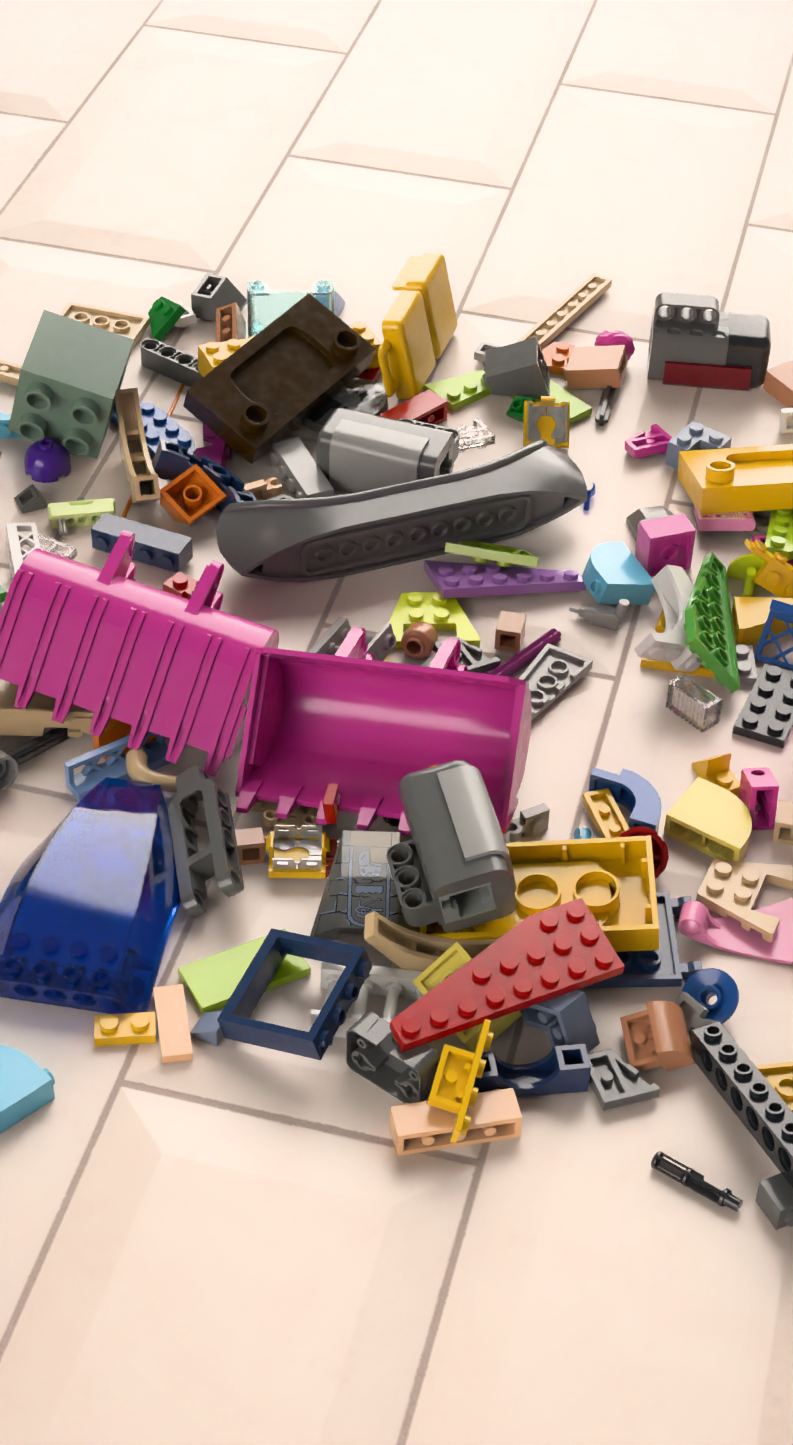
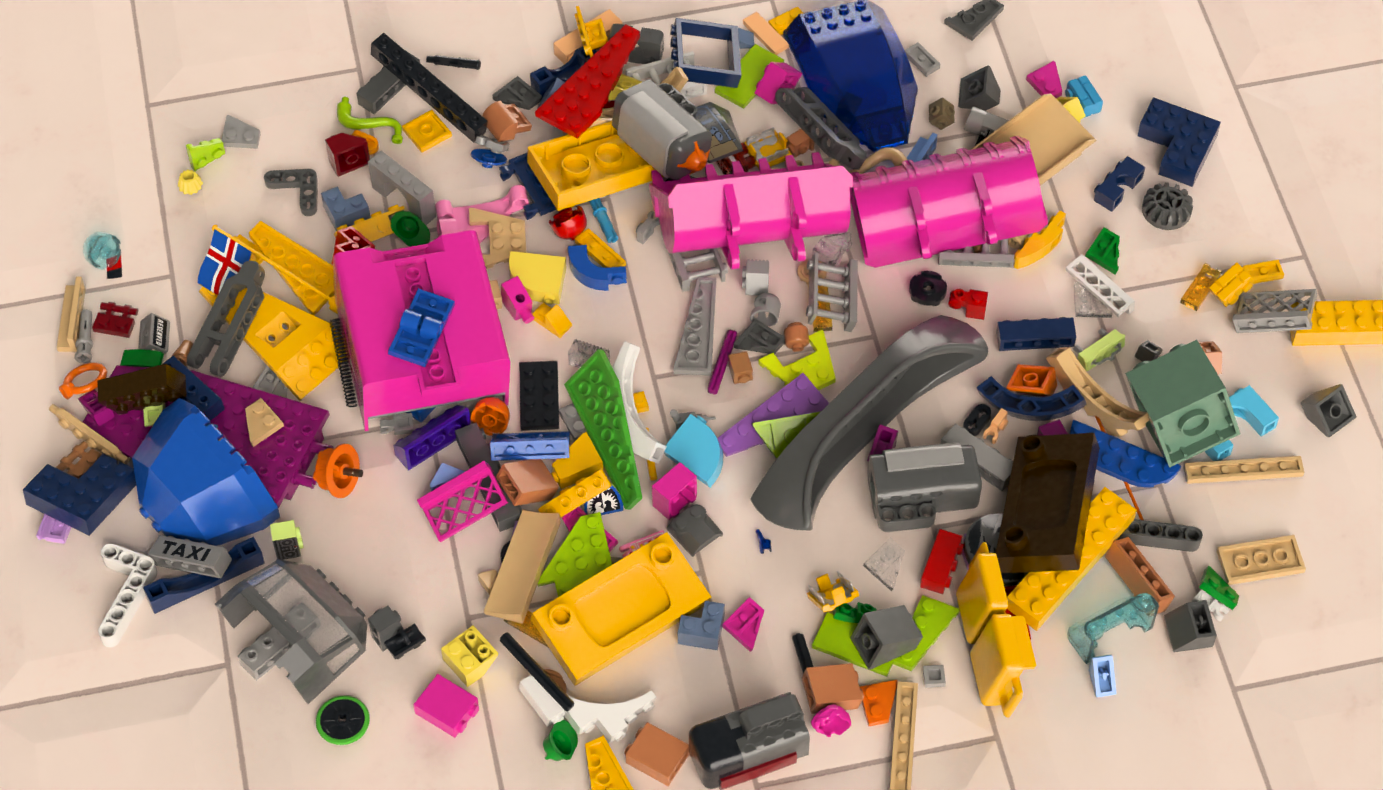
camera: 155 degrees right, 15 degrees up
(29, 800) = (941, 113): none -> dark tan brick
(215, 919) = (776, 76): none -> dark pink brick
(331, 803) = (758, 157): red tile -> none

